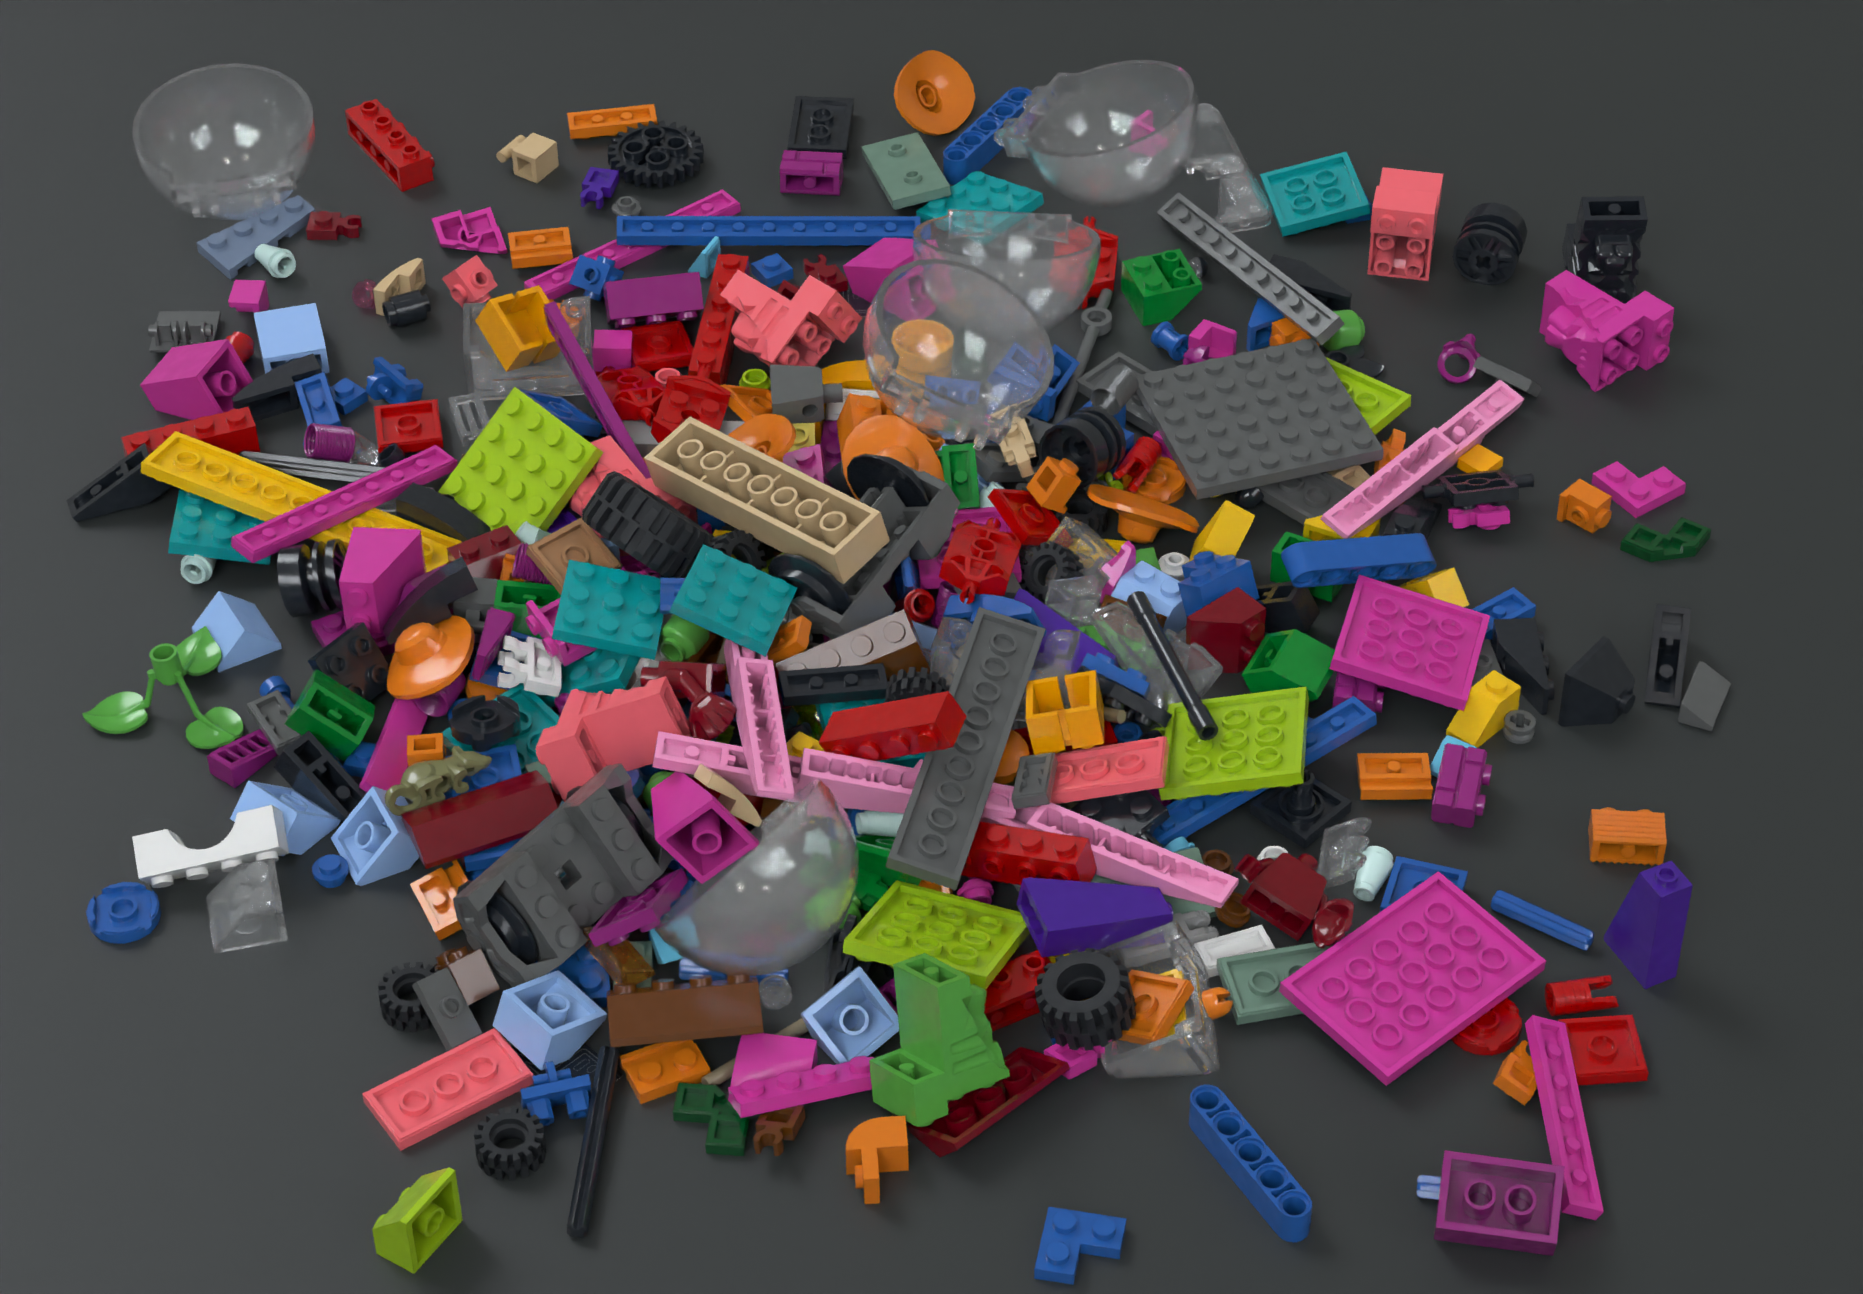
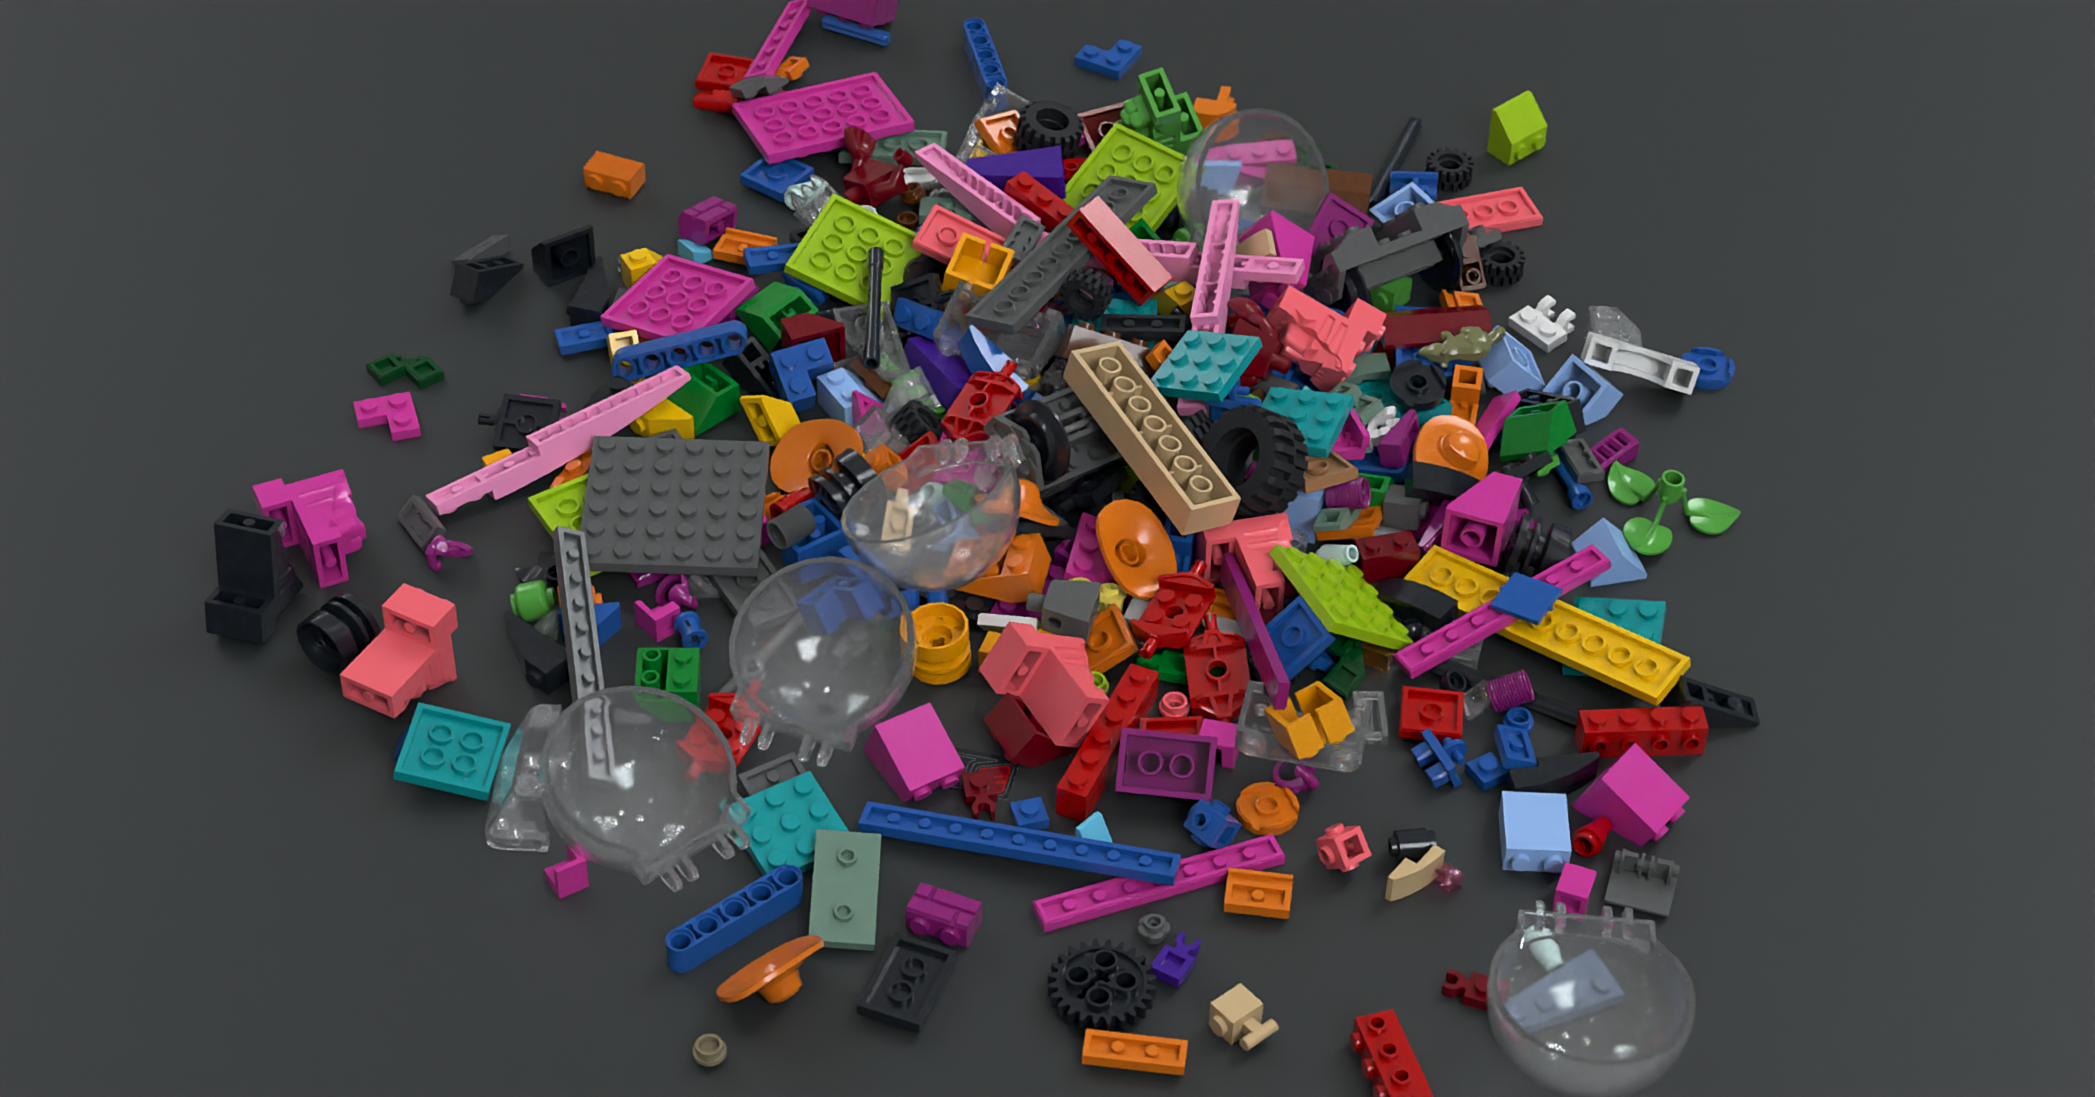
camera: 165 degrees left, 0 degrees up
(321, 498) = (1526, 598): none -> blue piece
(330, 870) = (1548, 359): blue plate -> none
(348, 915) = (1537, 327): none -> white plate
(470, 231) = (1329, 939): dark pink slope -> none
(553, 675) = (1365, 406): none -> sand green slope
(961, 55) = (709, 1050): none -> dark tan plate
(1215, 1002) = (955, 140): orange hinge -> none
(1526, 989) = (763, 84): none -> dark grey slope
(1542, 920) = (707, 149): blue axle -> none
(1585, 506) = (452, 398): orange brick -> none
(1652, 924) = (655, 87): dark purple slope -> none

